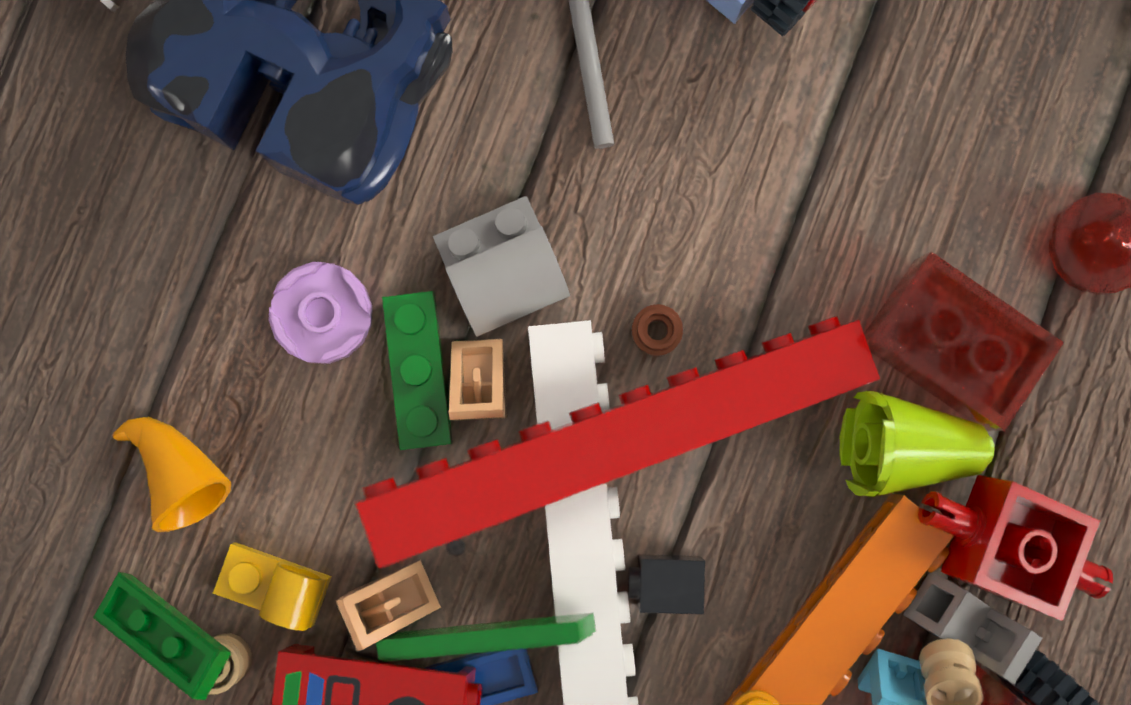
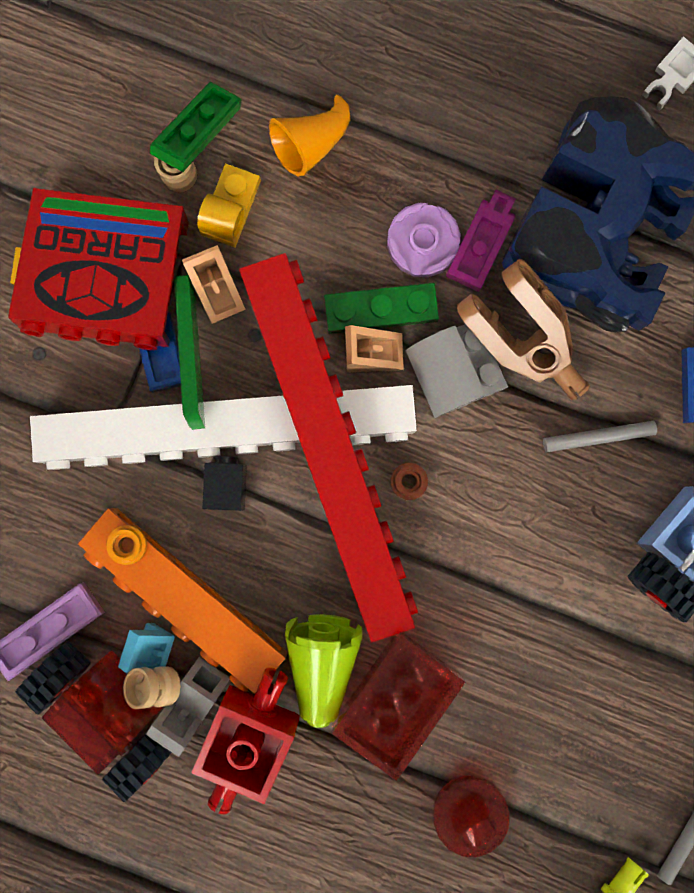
camera: 85 degrees right, 0 degrees up
(323, 230) = (482, 241): none -> magenta hinge
(483, 172) = (524, 355): none -> medium nougat piece

